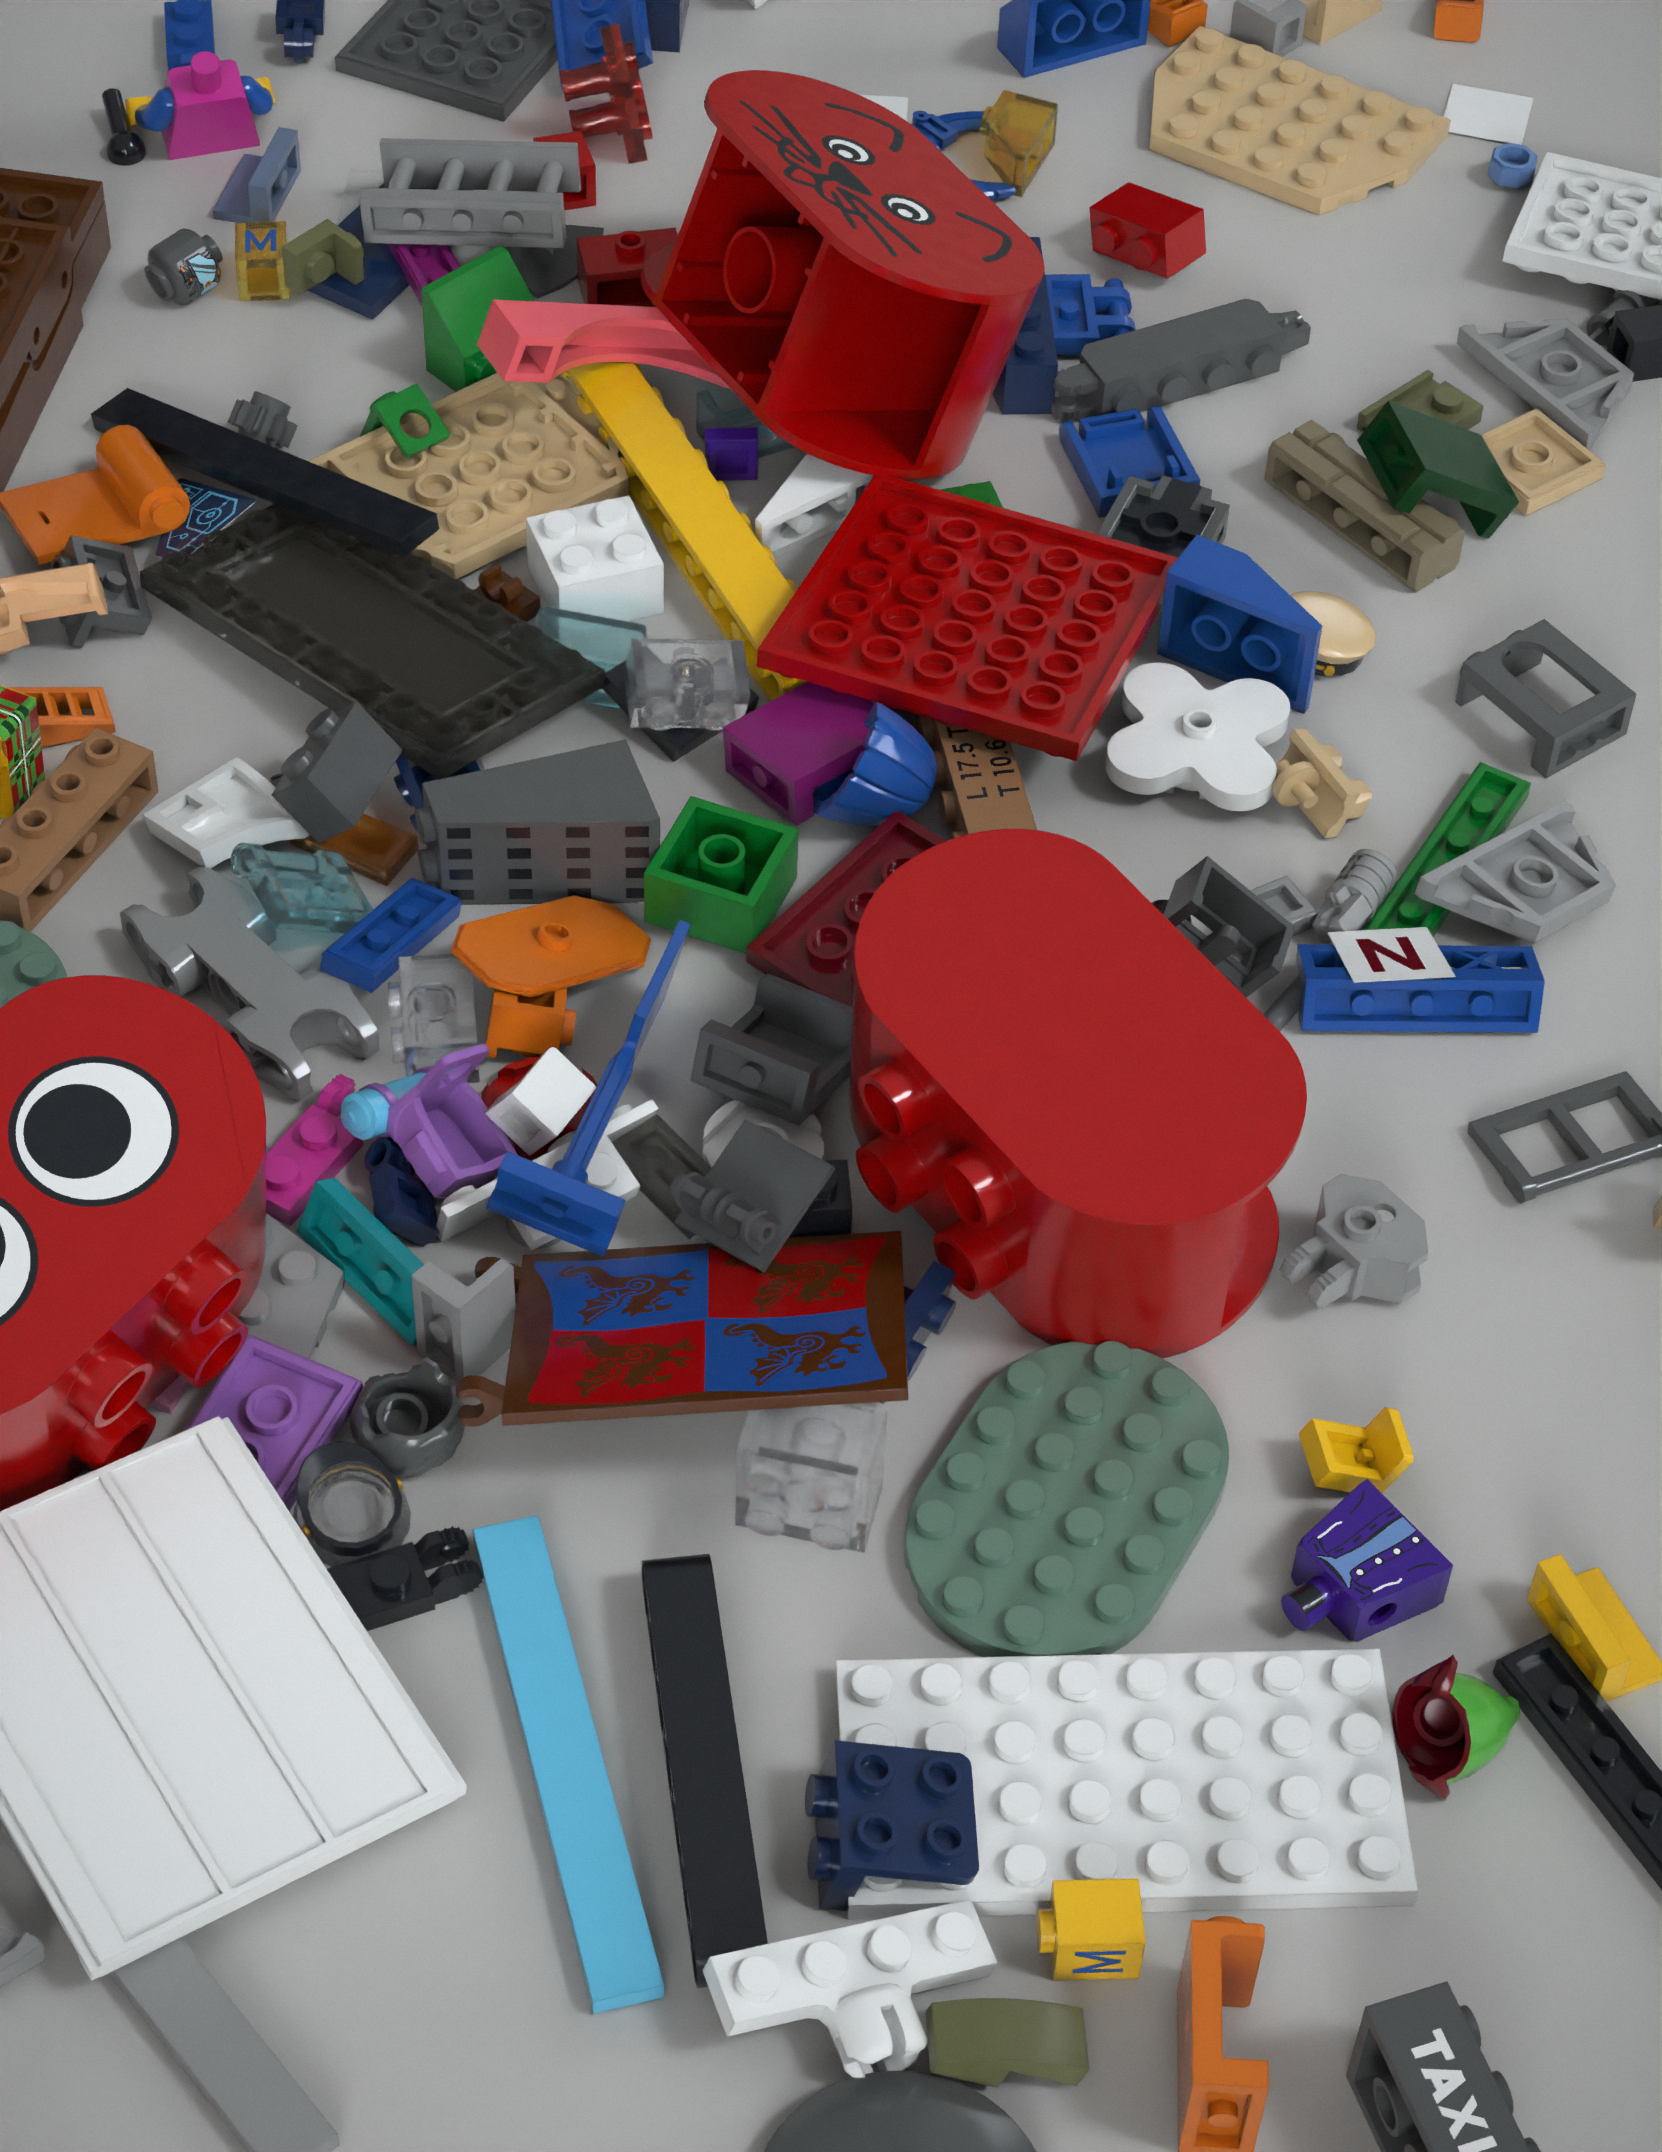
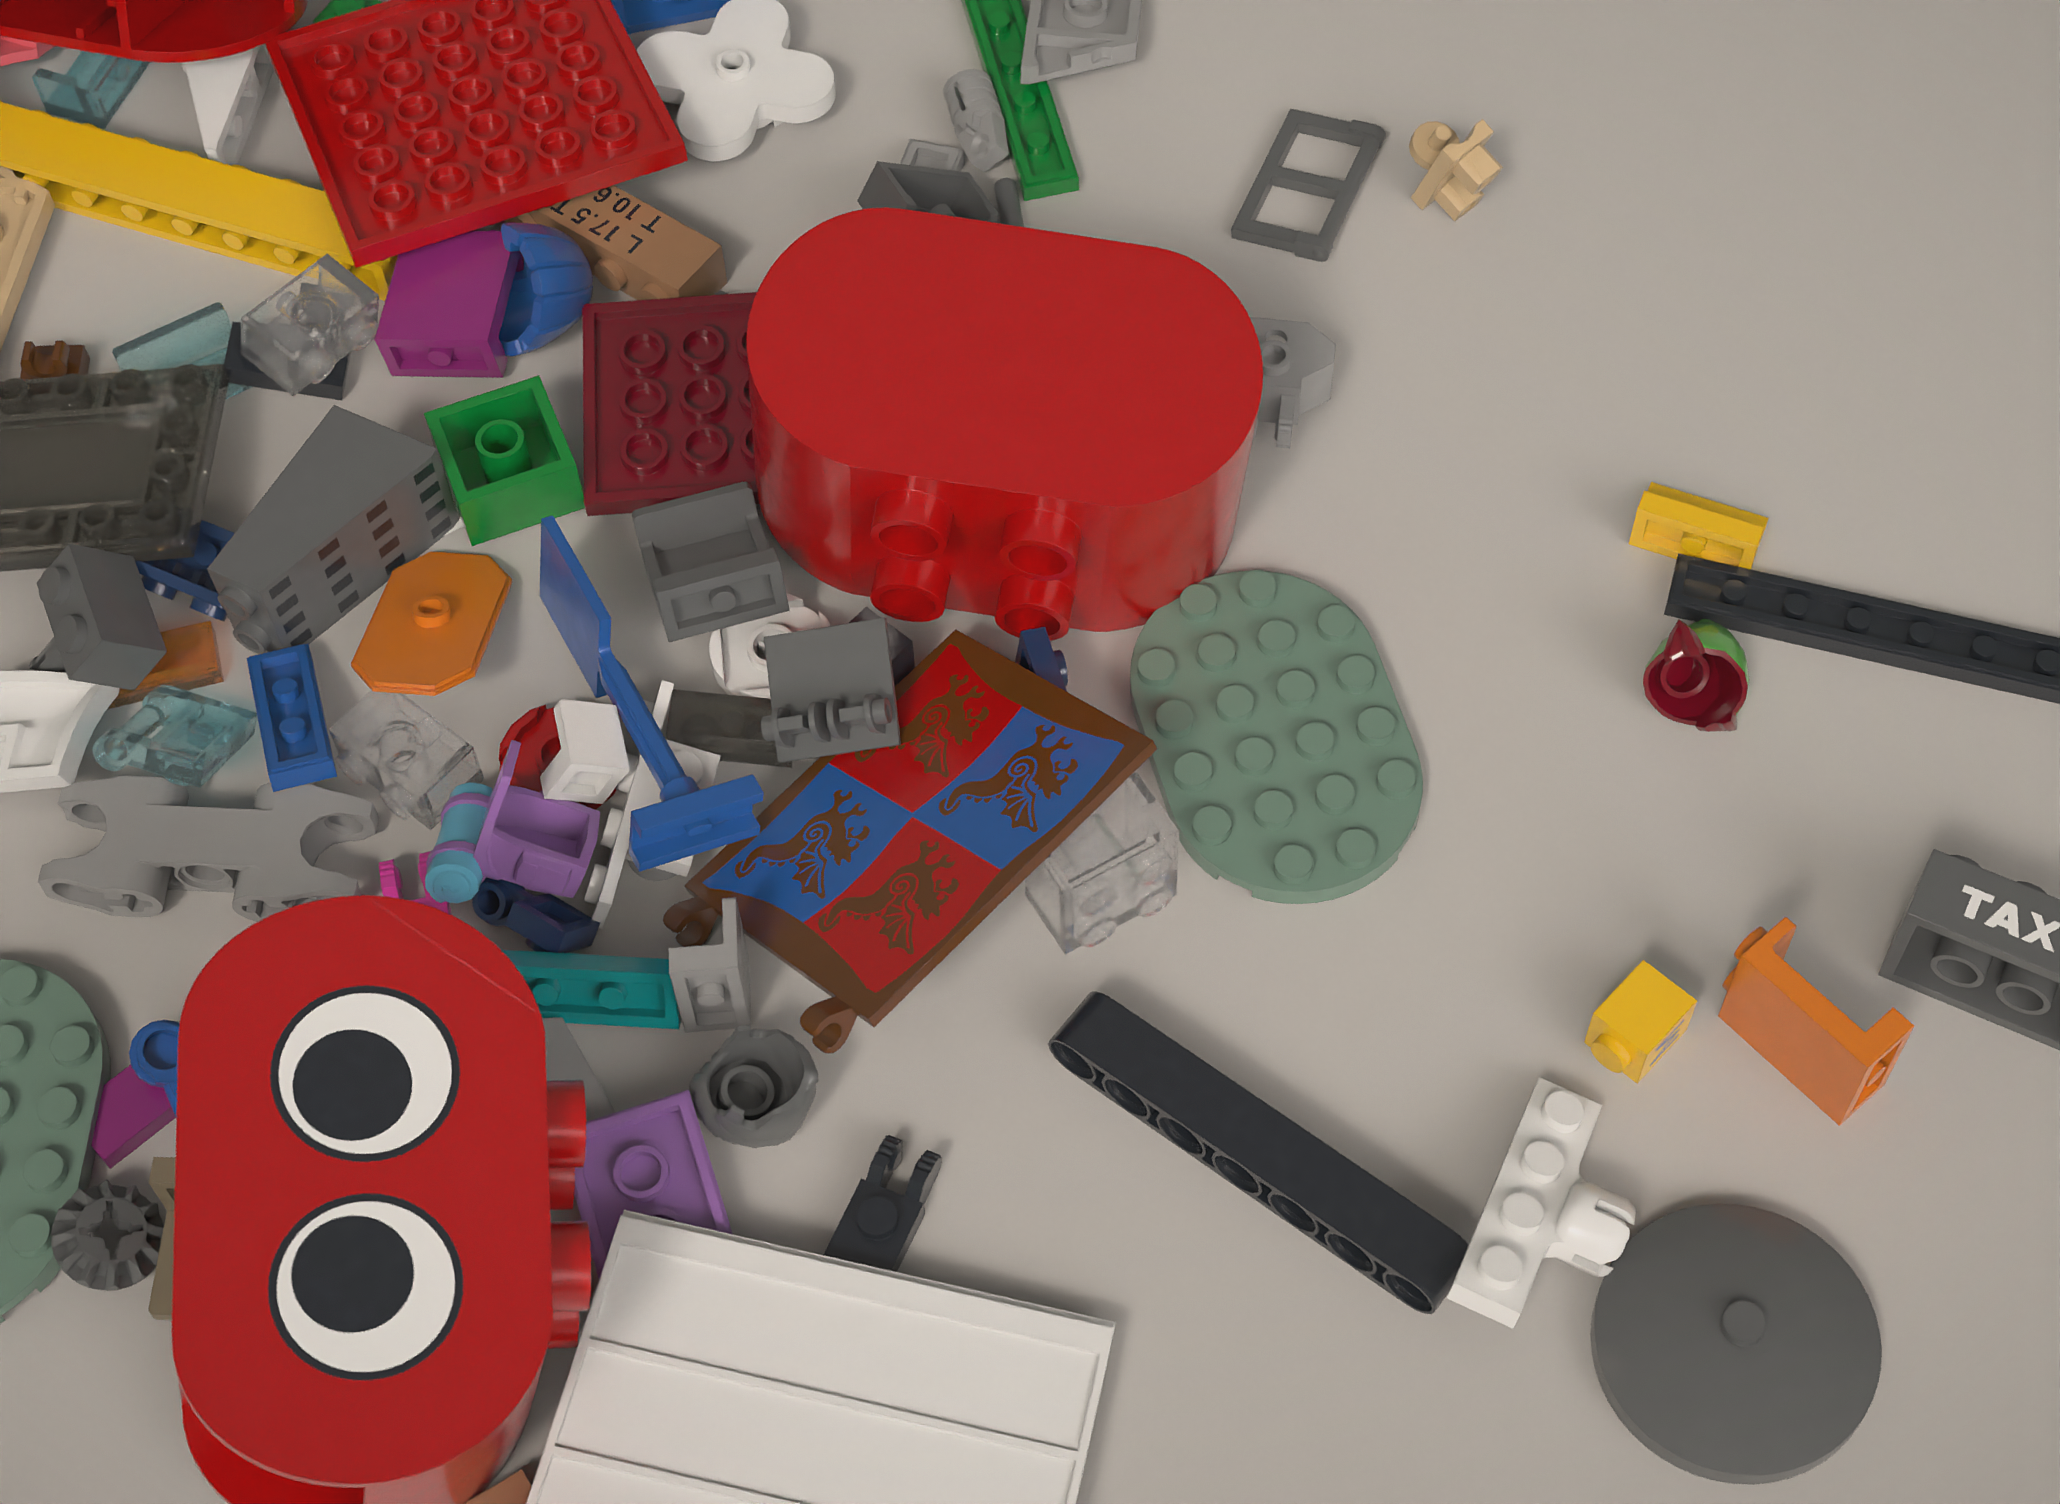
camera: 40 degrees left, 10 degrees up
(349, 1503) = (784, 1193): clear piece -> none
(529, 1023) = (484, 701): orange brick -> none
(568, 1767) = (1155, 1237): medium azure tile -> none
(596, 561) = (103, 281): white brick -> none
(732, 453) = (111, 105): dark purple tile -> none
(890, 1818) = (1432, 1073): dark blue bracket -> none
(992, 2036) = (1669, 1153): olive slope -> none
(1179, 1769) = (1524, 910): white plate -> none
(1314, 781) = (859, 49): tan hips -> none
(1347, 1454) = (1432, 530): yellow bracket -> none
(1365, 1569) = (1521, 609): dark purple torso -> none
(1390, 954) = (1060, 142): white sticker -> none
(1476, 1000) = (1106, 154): blue fence -> none

